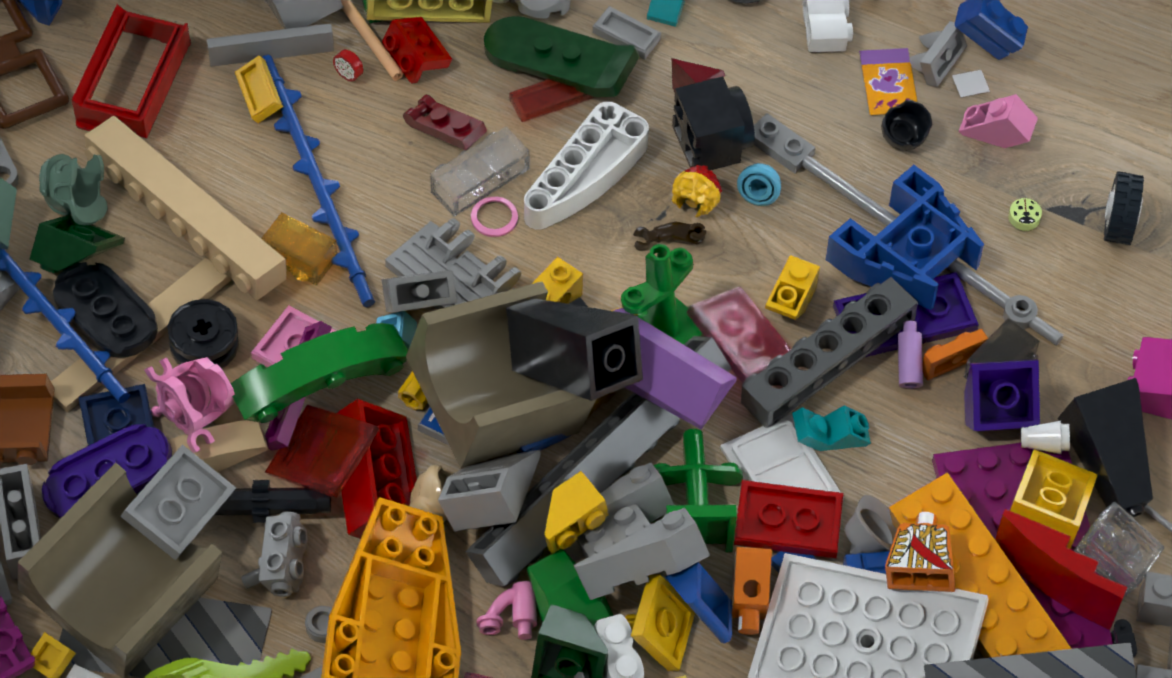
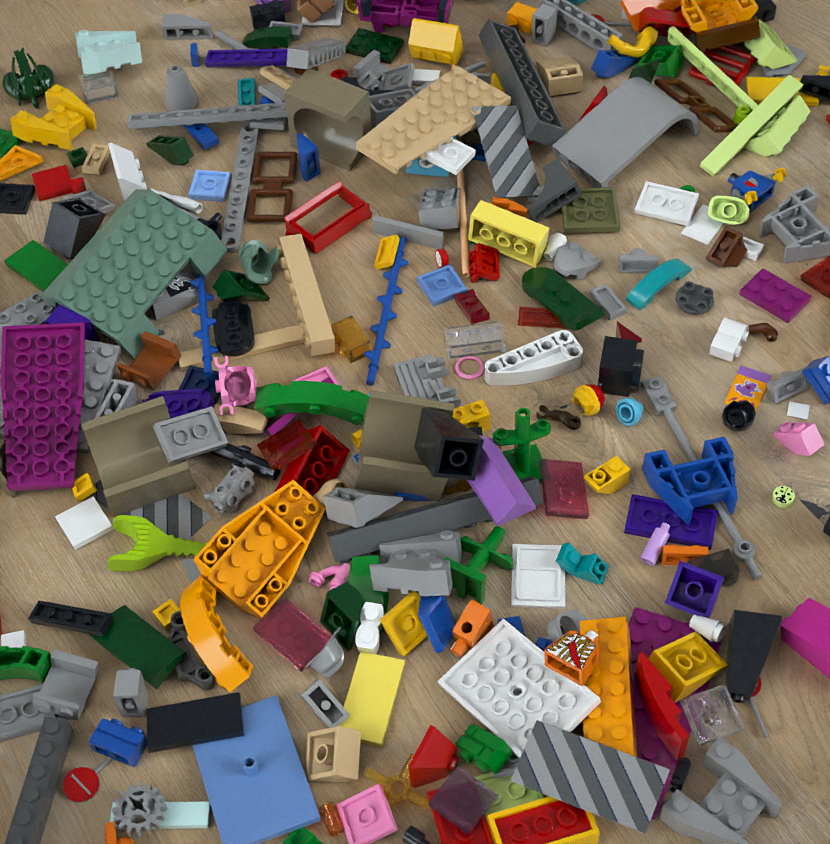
camera: 35 degrees right, 5 degrees down
(202, 331) = (272, 361): black wheel -> none
(372, 107) = (441, 285): none -> medium blue tile
(419, 291) = (395, 384): light grey slope -> none
(572, 511) = (391, 536): yellow slope -> none
(773, 404) = (597, 526): dark grey brick -> none
(788, 519) = (521, 602): red tile -> none

